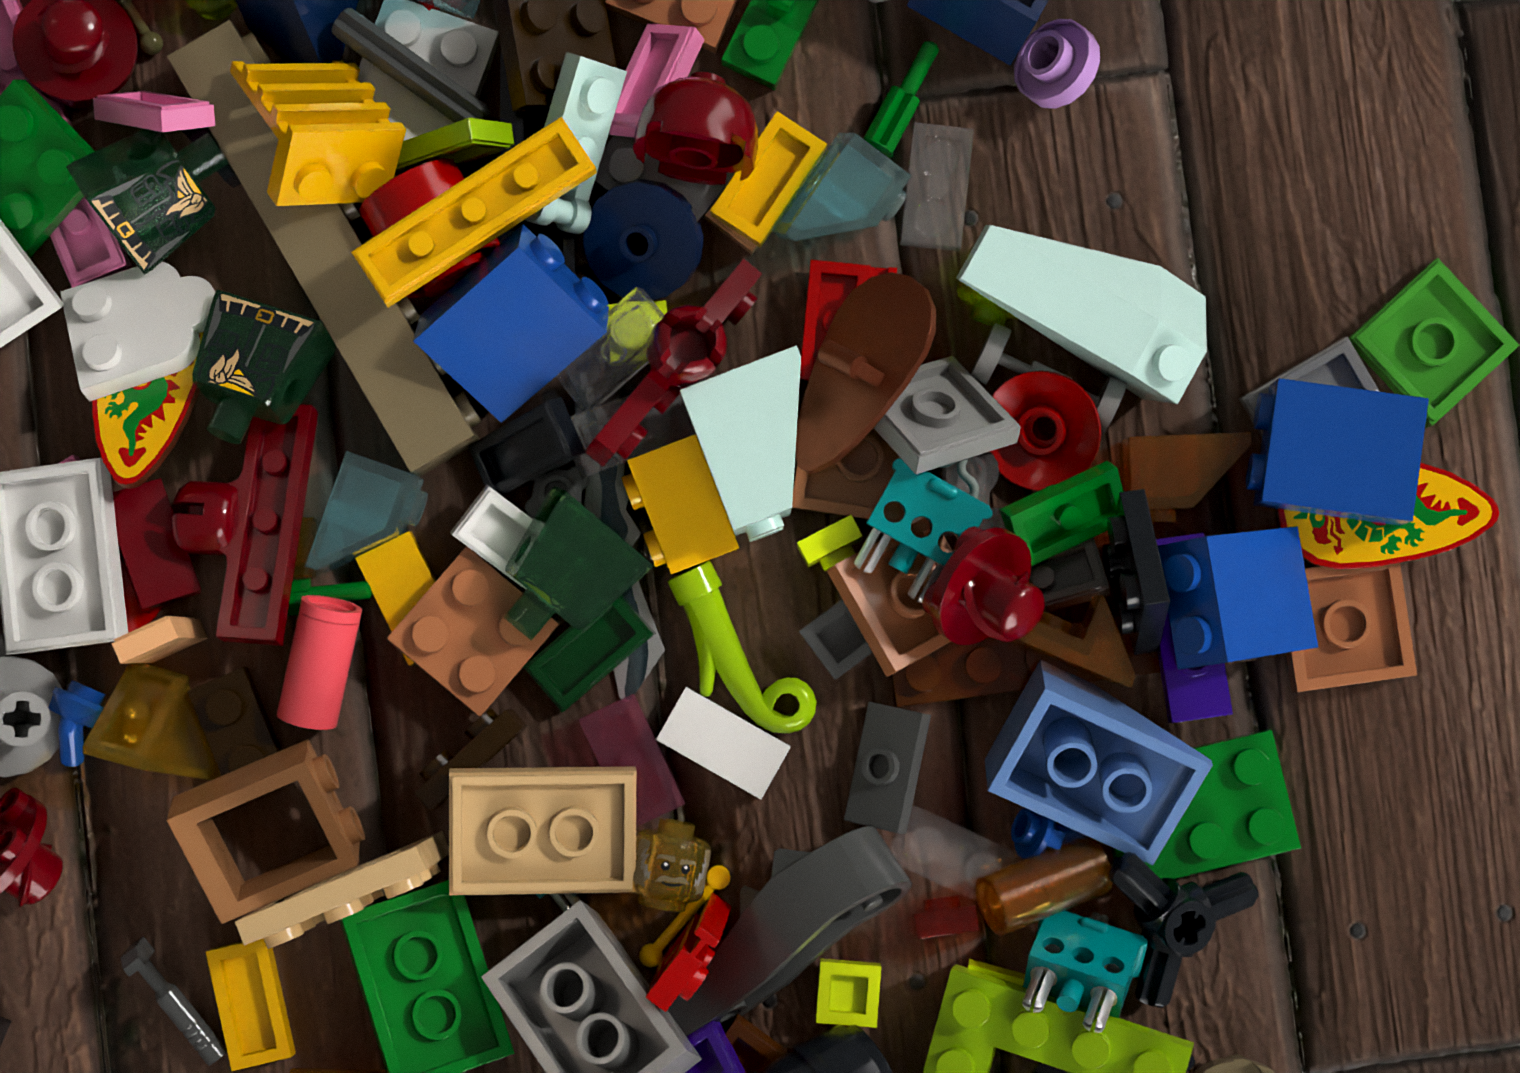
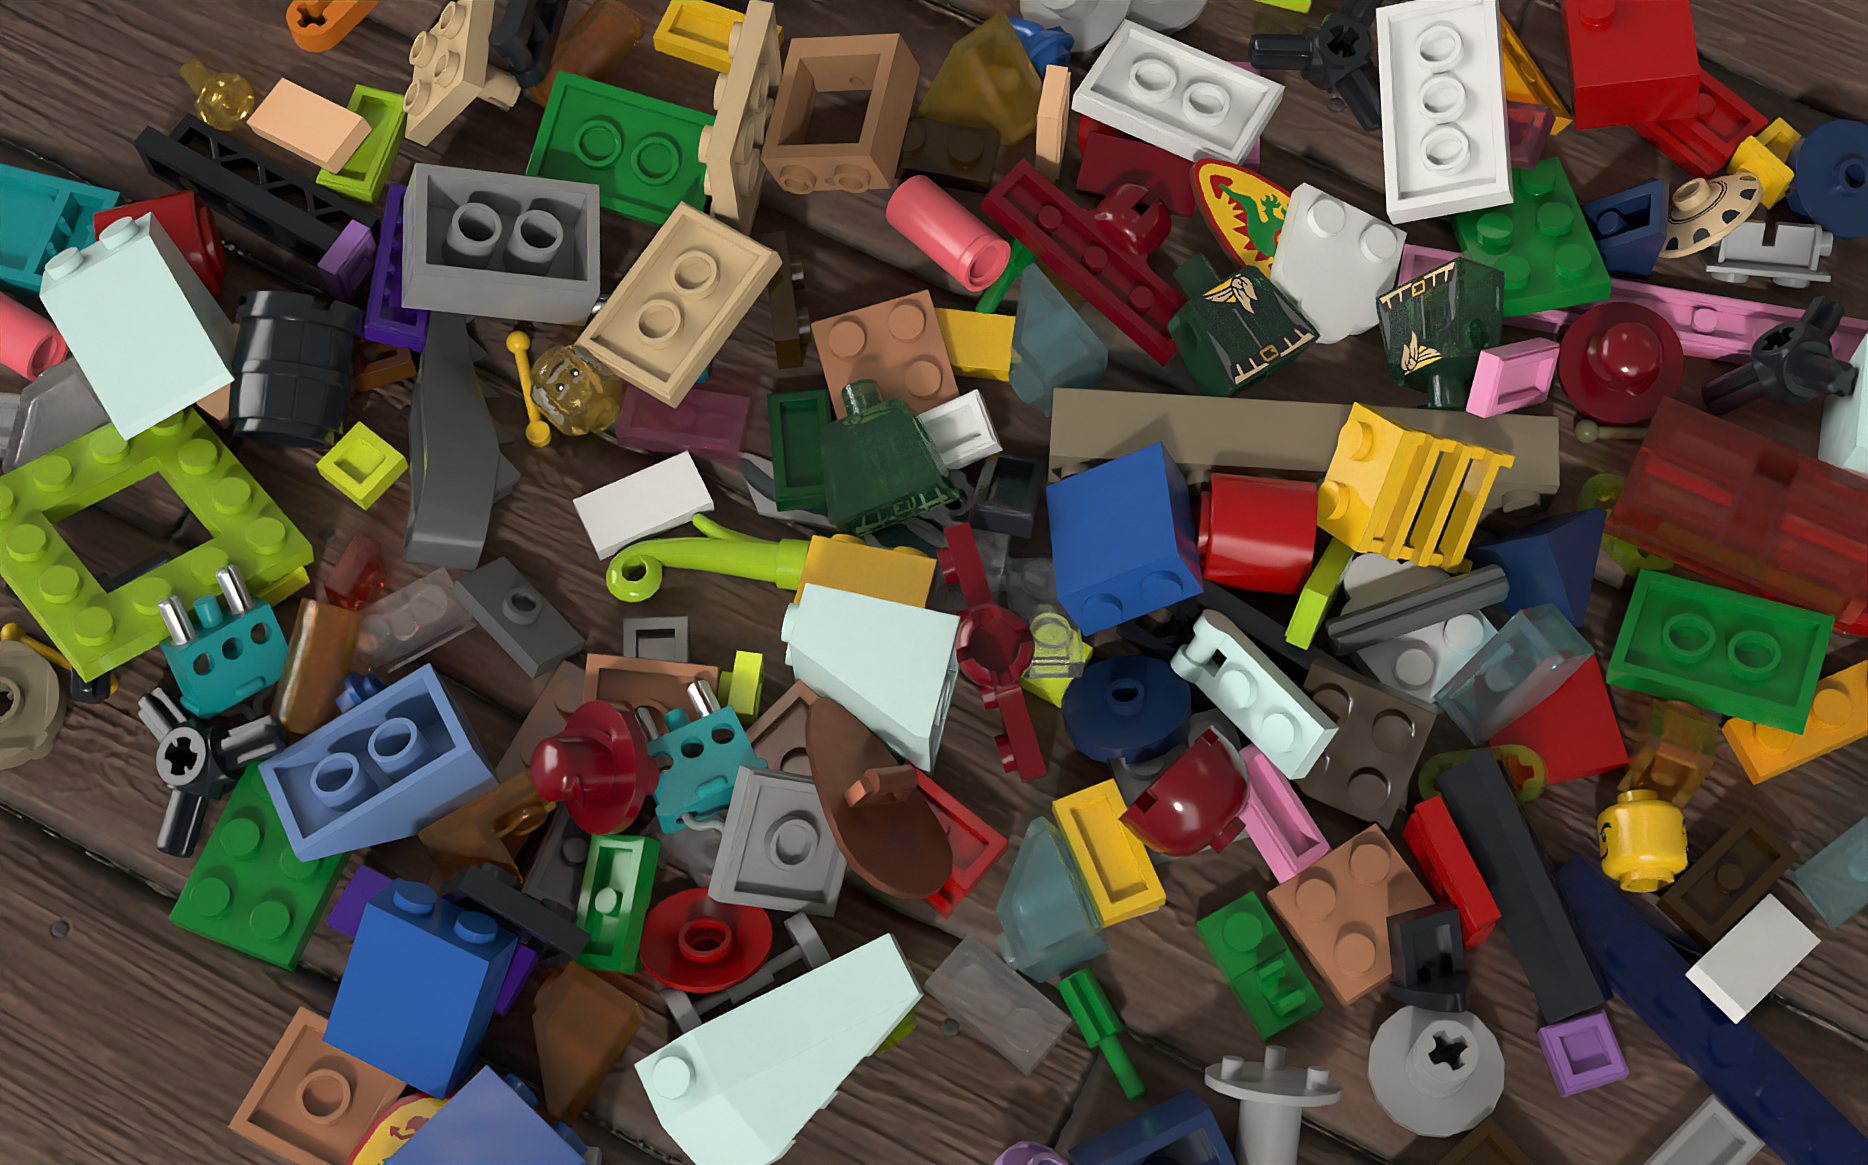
camera: 130 degrees right, 20 degrees down
(474, 212) = (1239, 553): yellow tile -> none
(686, 960) = (490, 354): red plate -> none

